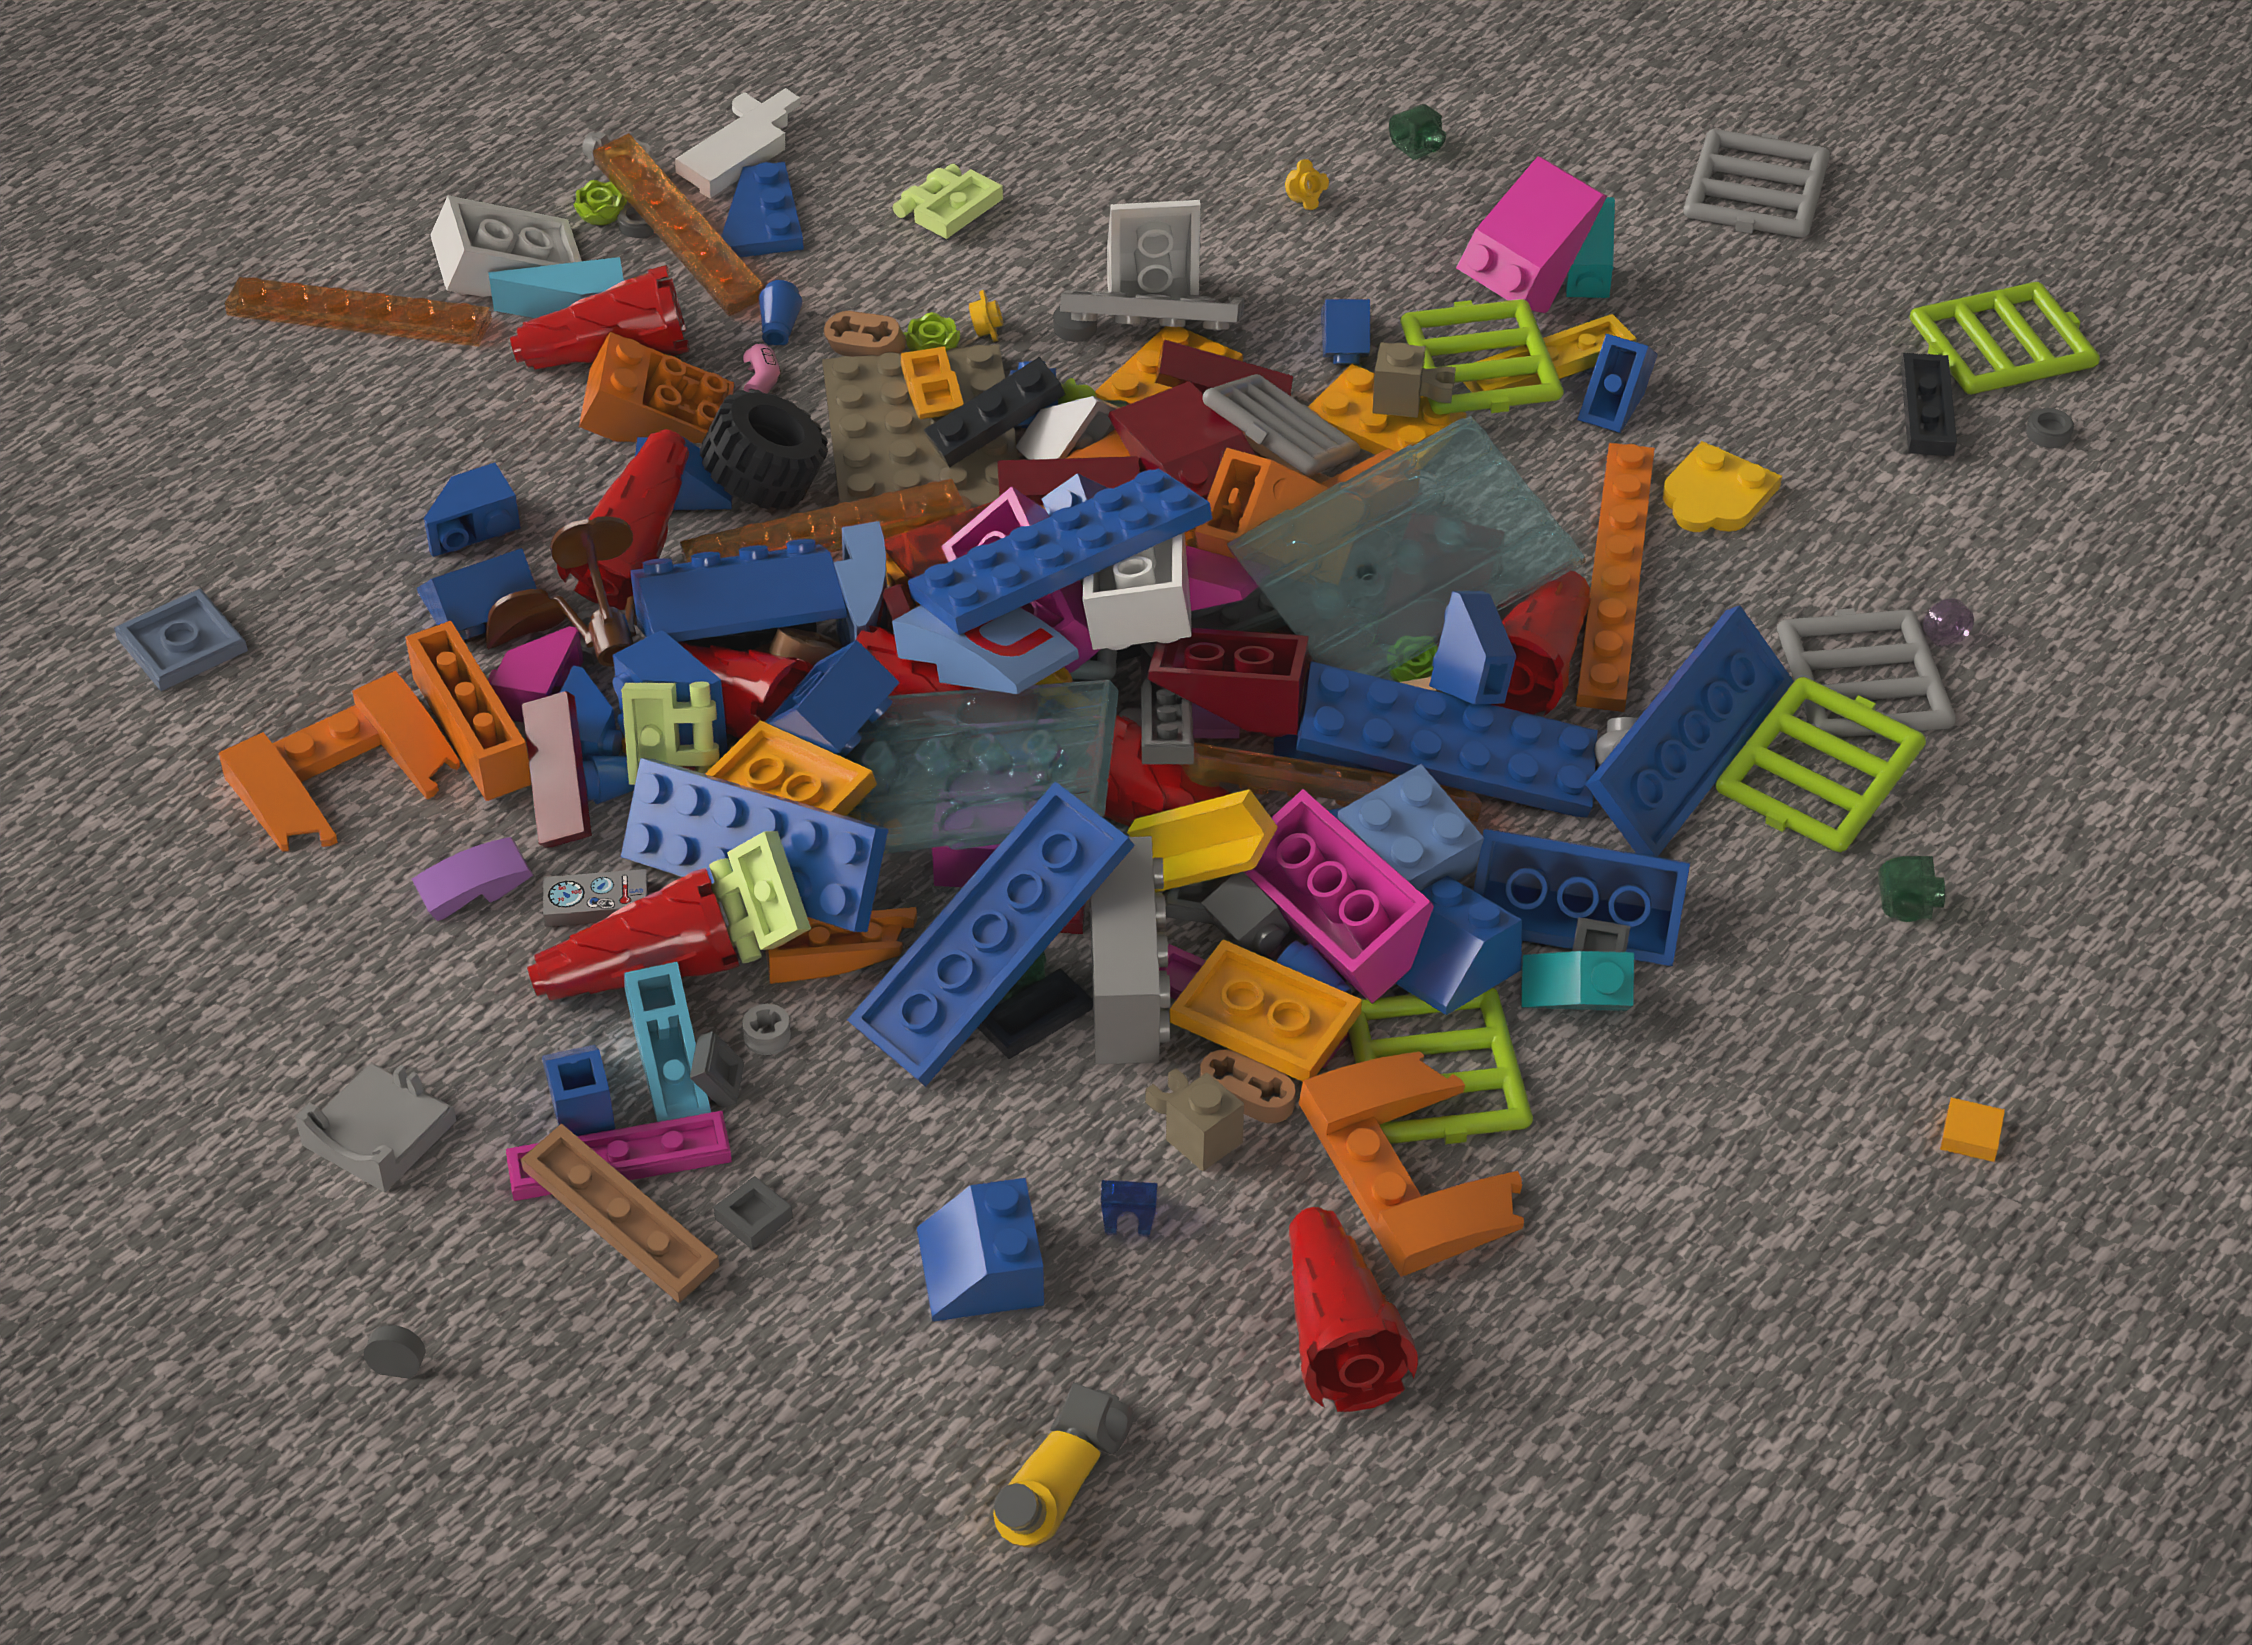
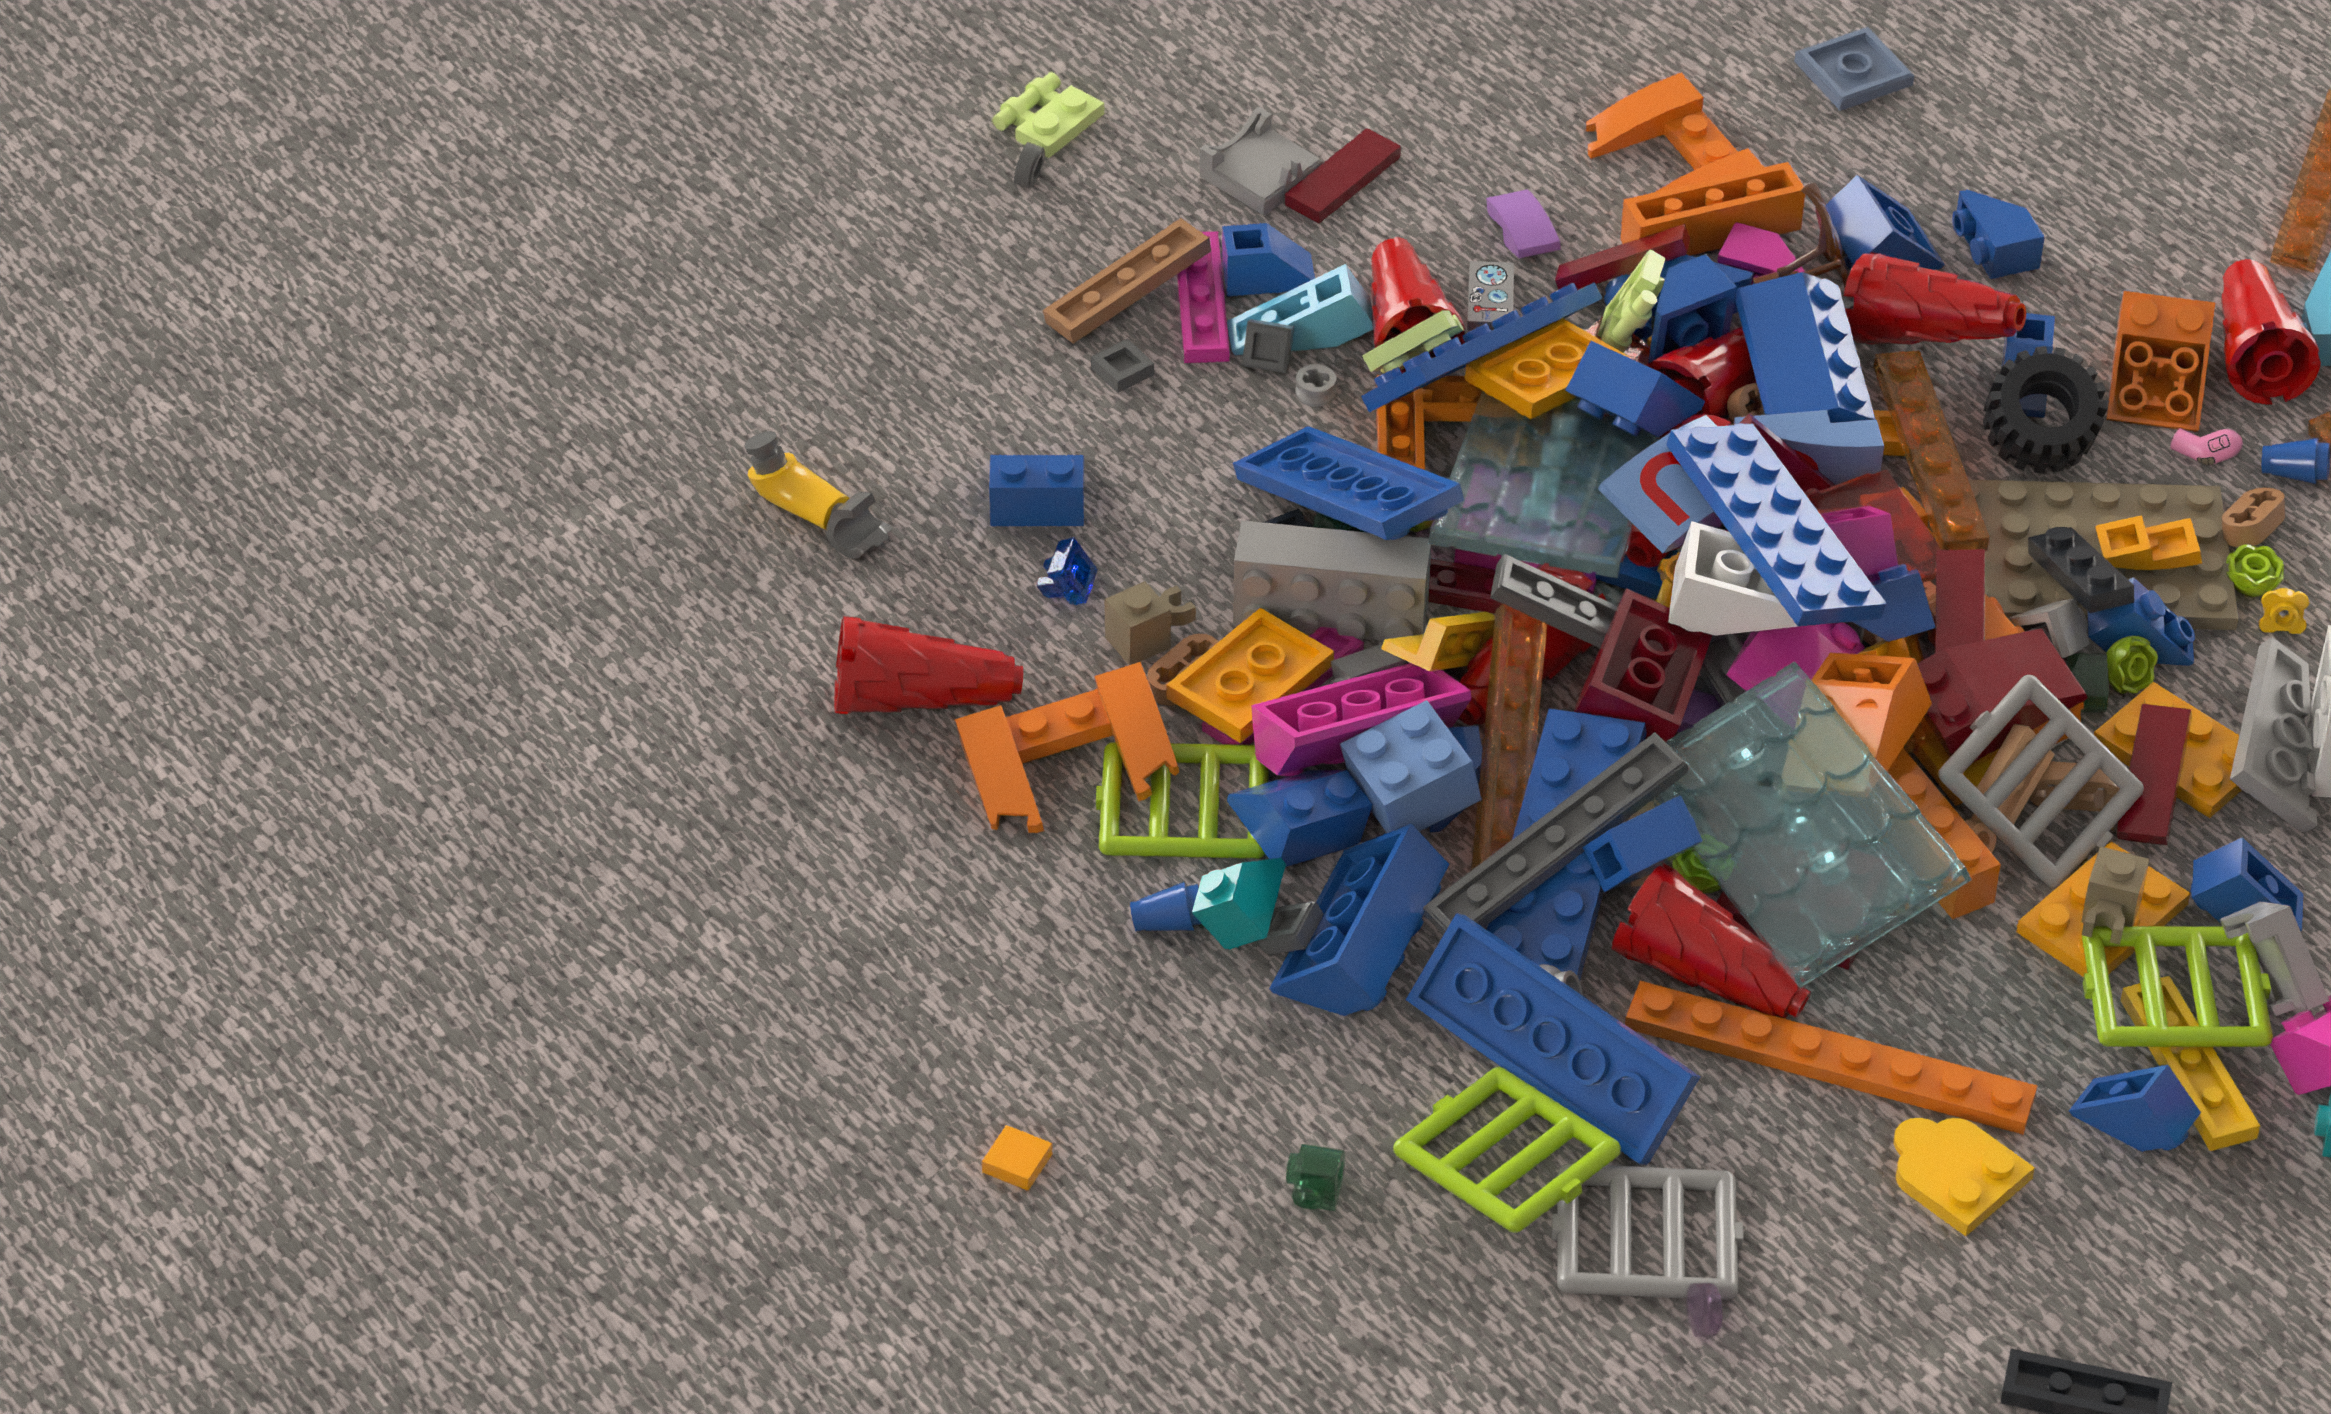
camera: 100 degrees right, 0 degrees up
(285, 1342) = (1059, 119): none -> yellowish green plate
(367, 1037) = (1342, 175): none -> dark red tile
(1452, 273) = (2280, 954): none -> light grey piece
(1468, 727) = (1559, 835): none -> dark grey tile
(1606, 1044) = (1166, 910): none -> blue cone

